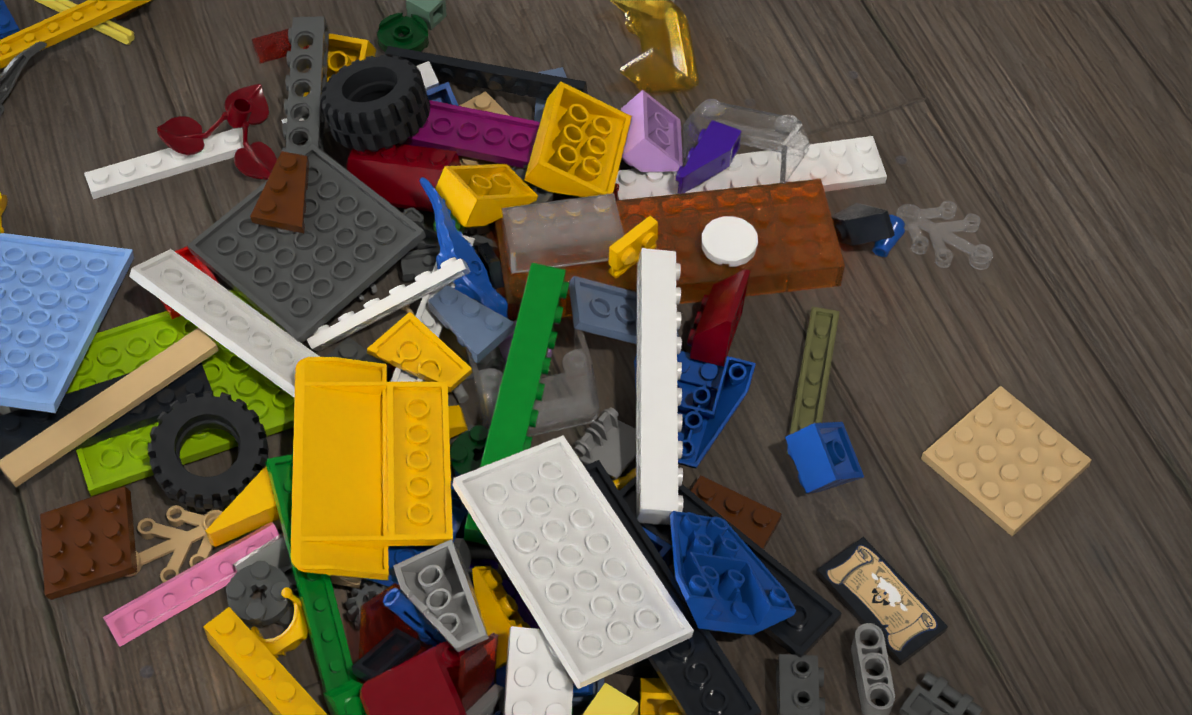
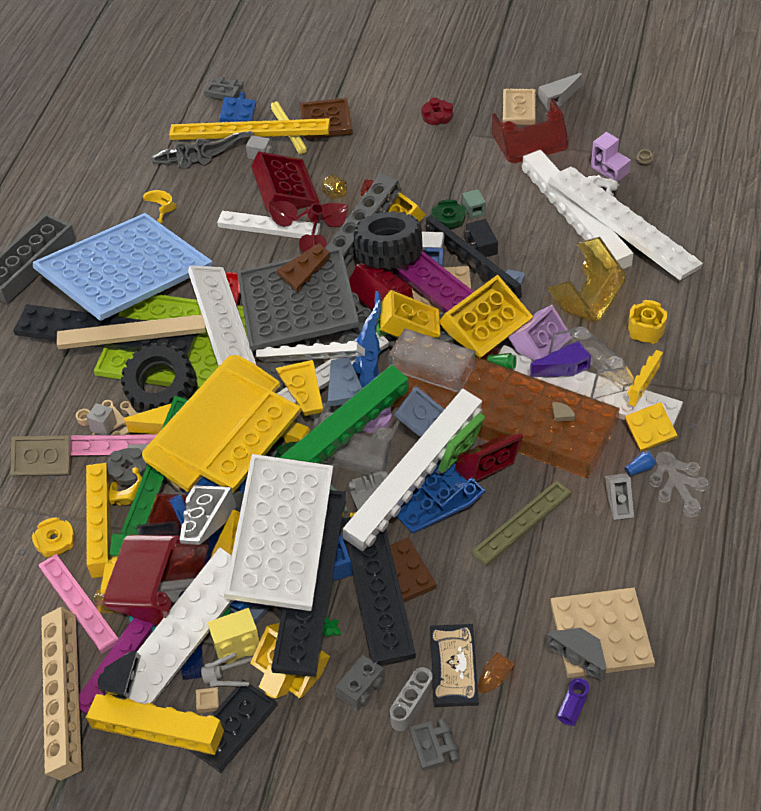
camera: 40 degrees right, 5 degrees down
(65, 61) = (258, 144): none -> light grey brick
(88, 543) = (72, 396): reddish brown plate -> none
(113, 652) = (40, 455): none -> dark tan tile
(139, 92) = (283, 180): none -> dark red slope
(166, 551) = (101, 419): none -> light grey brick
(218, 67) = (334, 186): none -> clear yellow head
(473, 44) = (481, 237): none -> black brick
(491, 264) = (383, 361): black tile -> none
(626, 250) = (472, 383): yellow plate -> none
(638, 188) = (506, 360): none -> green cone
(689, 316) = (461, 442): none -> bright green tile
(724, 578) = (356, 589): blue wedge -> none
(729, 241) = (527, 414): white tile -> none
(759, 58) = (647, 321): none -> yellow brick
(767, 217) = (562, 412): none -> dark tan tile
(817, 128) = (644, 379): none -> yellow plate
(823, 456) = (486, 565): blue slope -> none
(862, 224) = (622, 447): black slope -> none
(865, 181) = (650, 427): none -> yellow plate
(897, 284) = (620, 496): none -> light grey slope
(933, 579) = (494, 673): none -> clear orange plate
(1018, 493) = (580, 649): none -> dark grey slope
(1050, 561) = (573, 702): none -> dark purple piece

